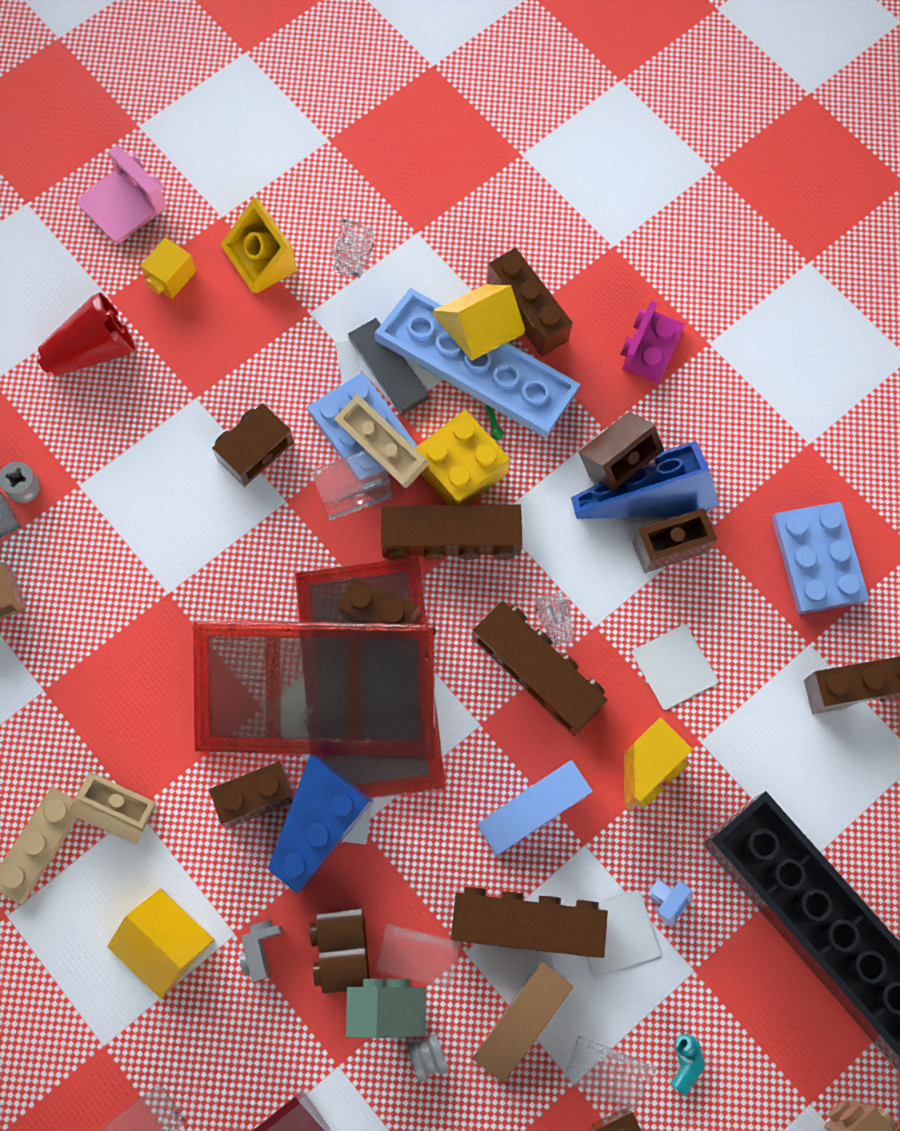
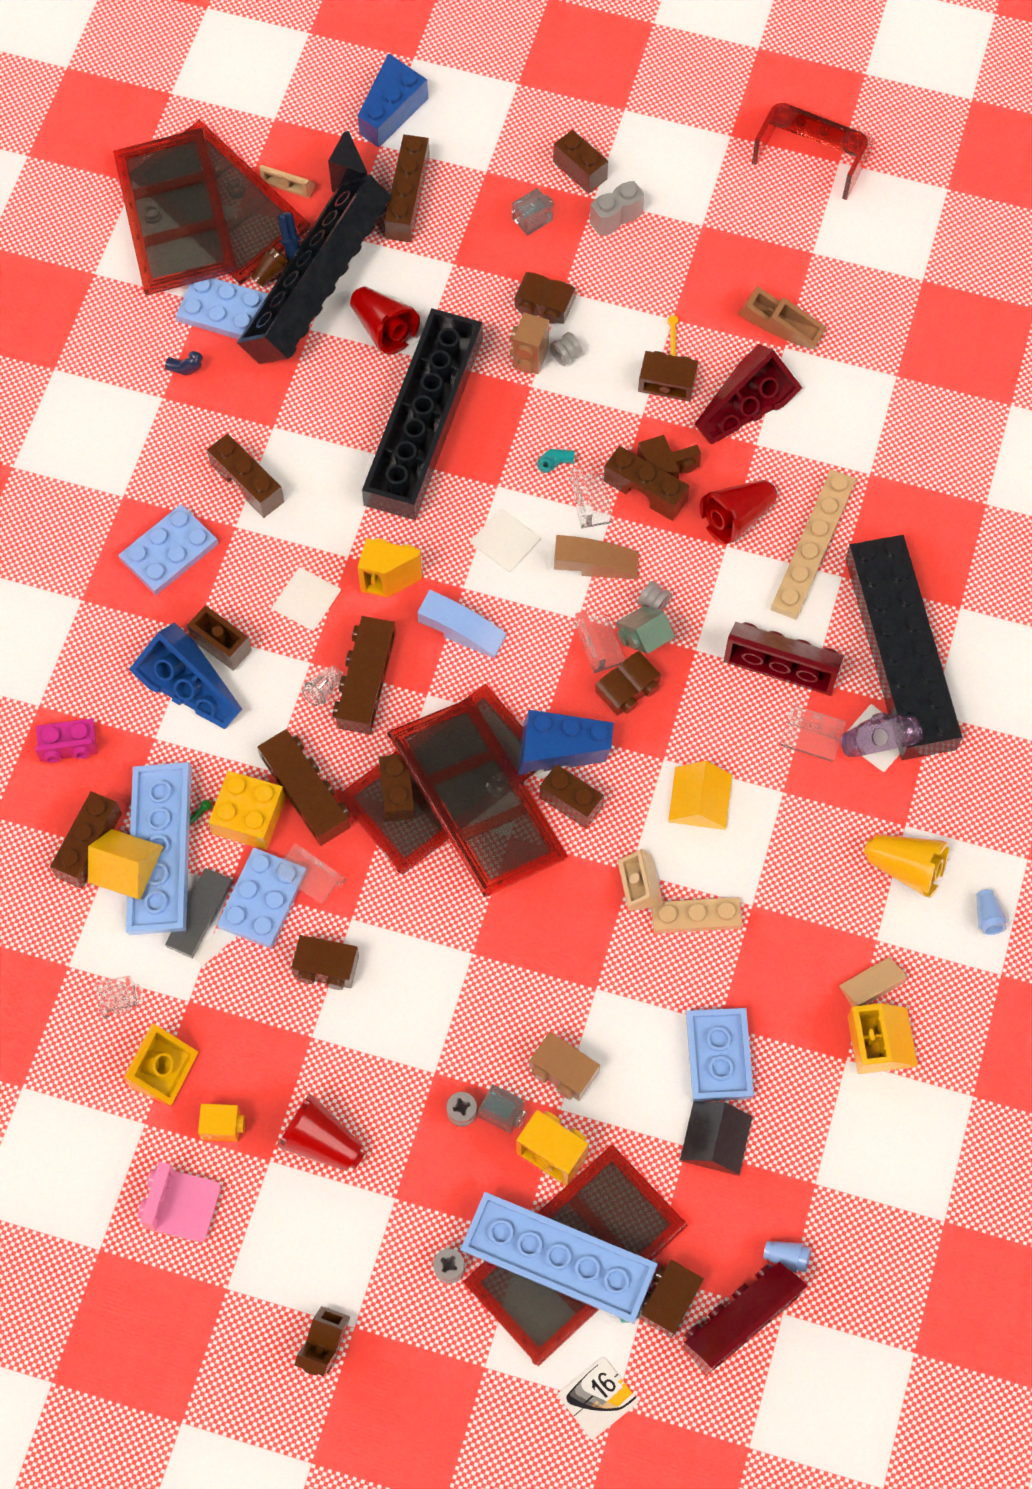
camera: 120 degrees left, 5 degrees down
(254, 958) = (667, 732): light grey bracket -> none
(381, 441) = (269, 863): tan plate -> none
(529, 924) = (536, 586): reddish brown brick -> none
(621, 450) = (171, 708): reddish brown brick -> none
(671, 900) = (465, 514): light blue tile -> none

